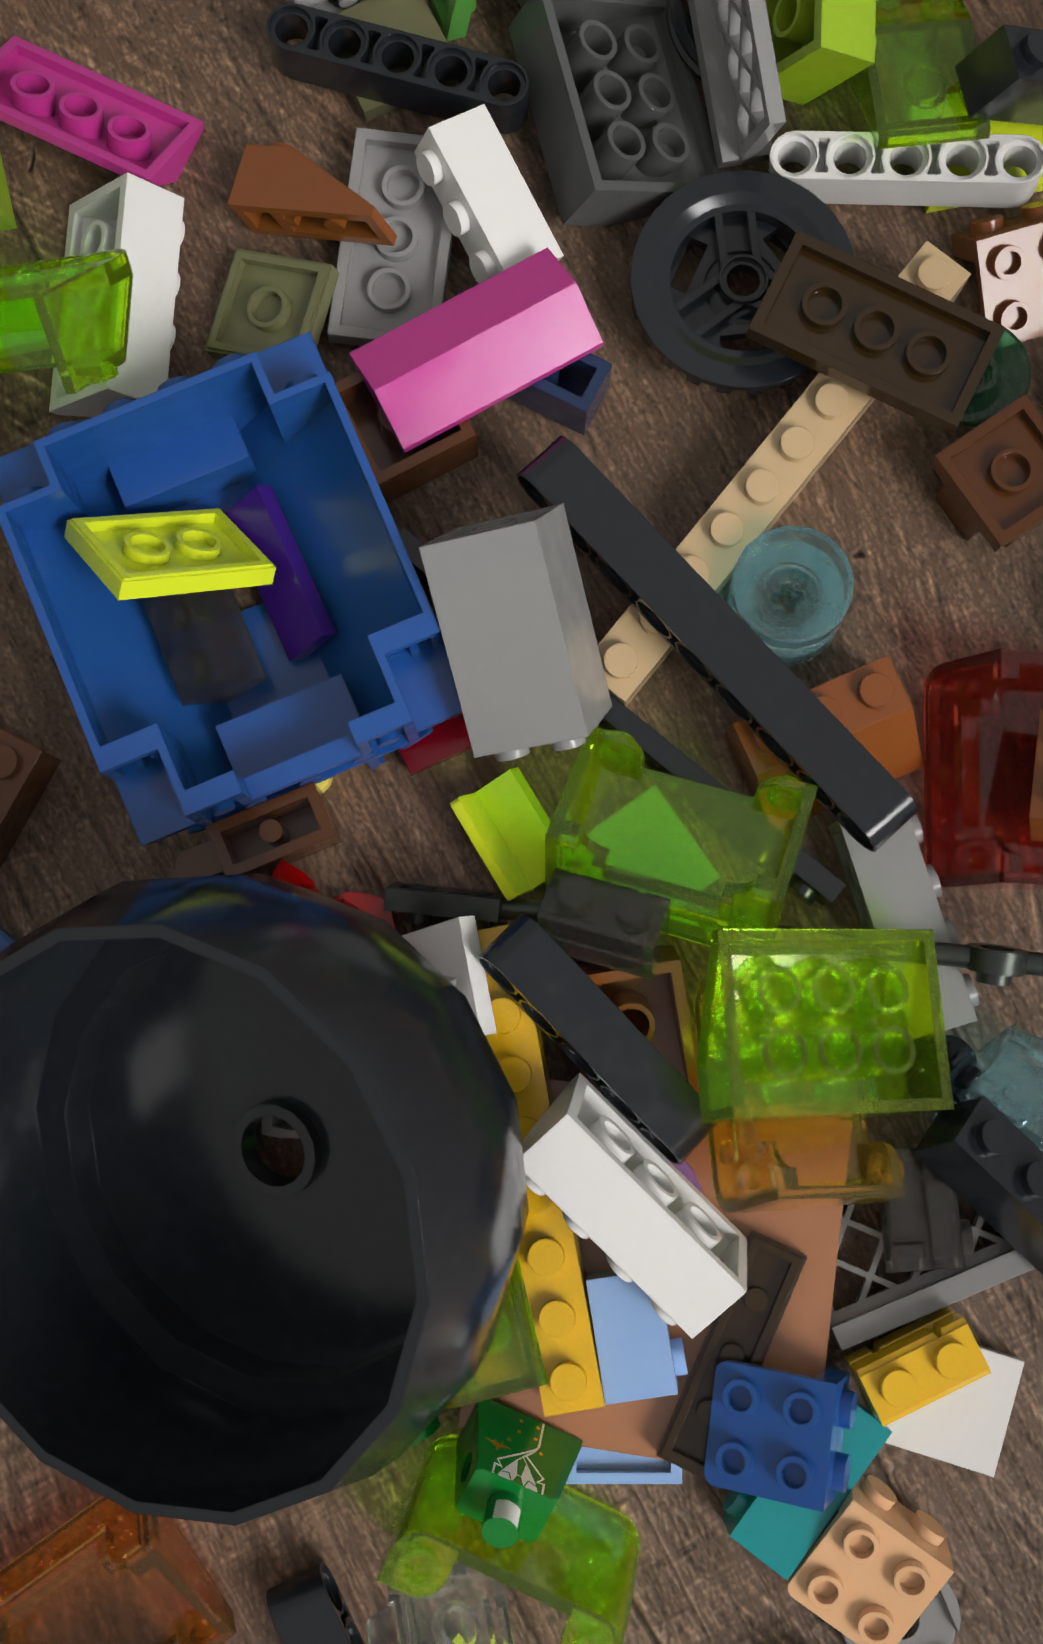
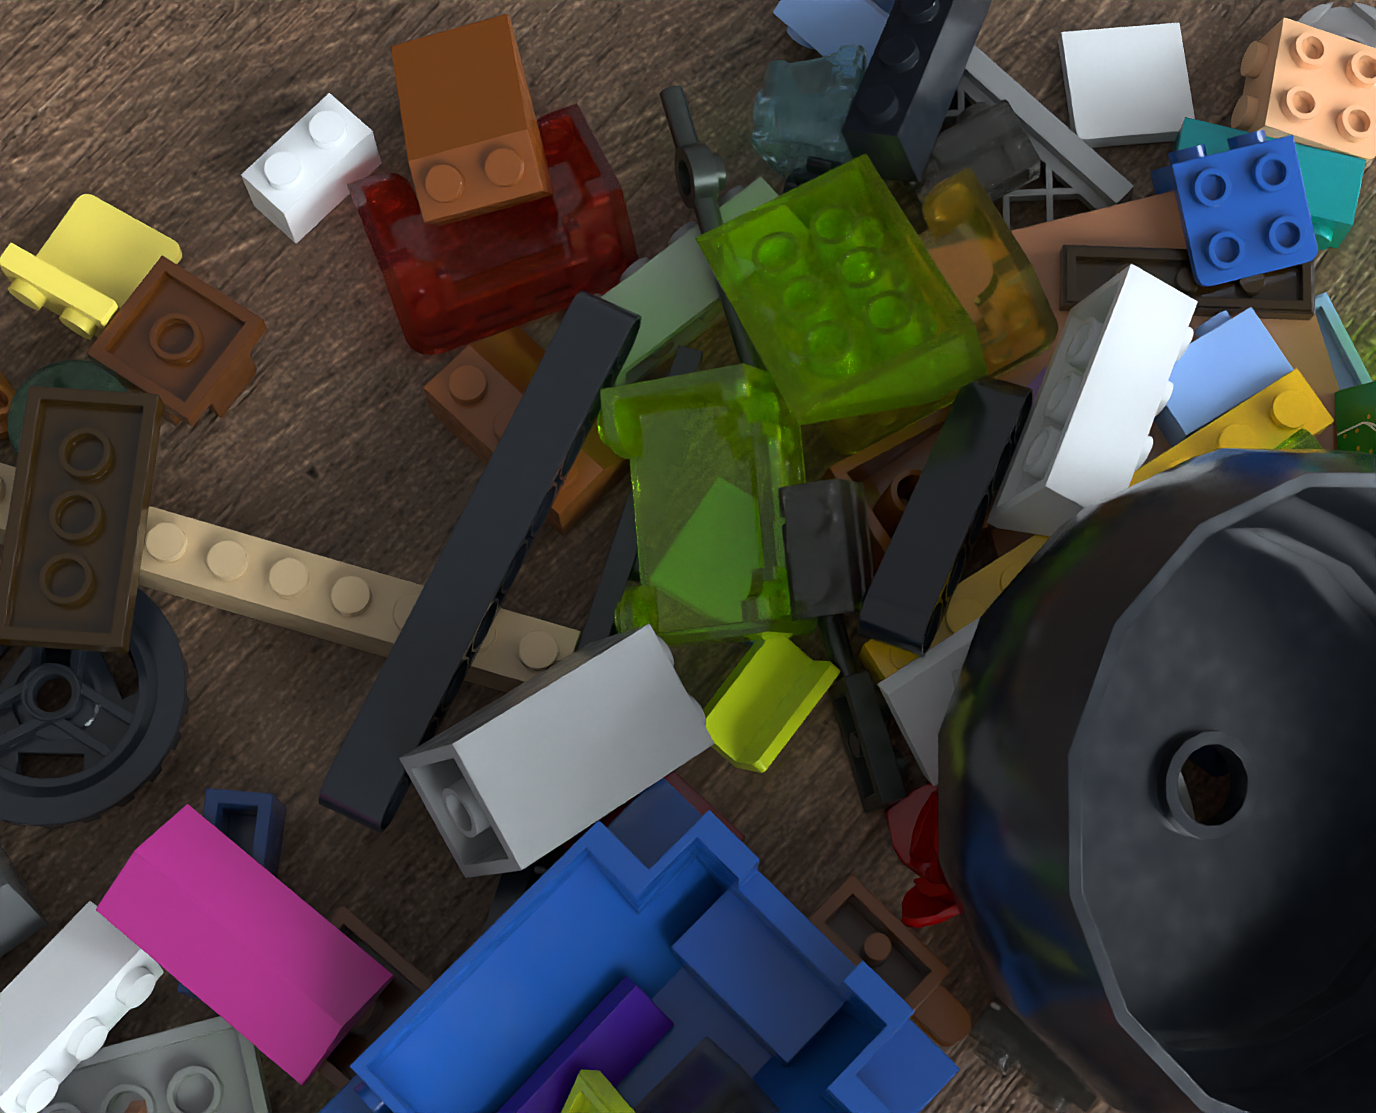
camera: 110 degrees left, 10 degrees down
(806, 571) = (377, 481): clear light blue wheel -> none
(917, 1365) = (1115, 115): yellow brick -> none

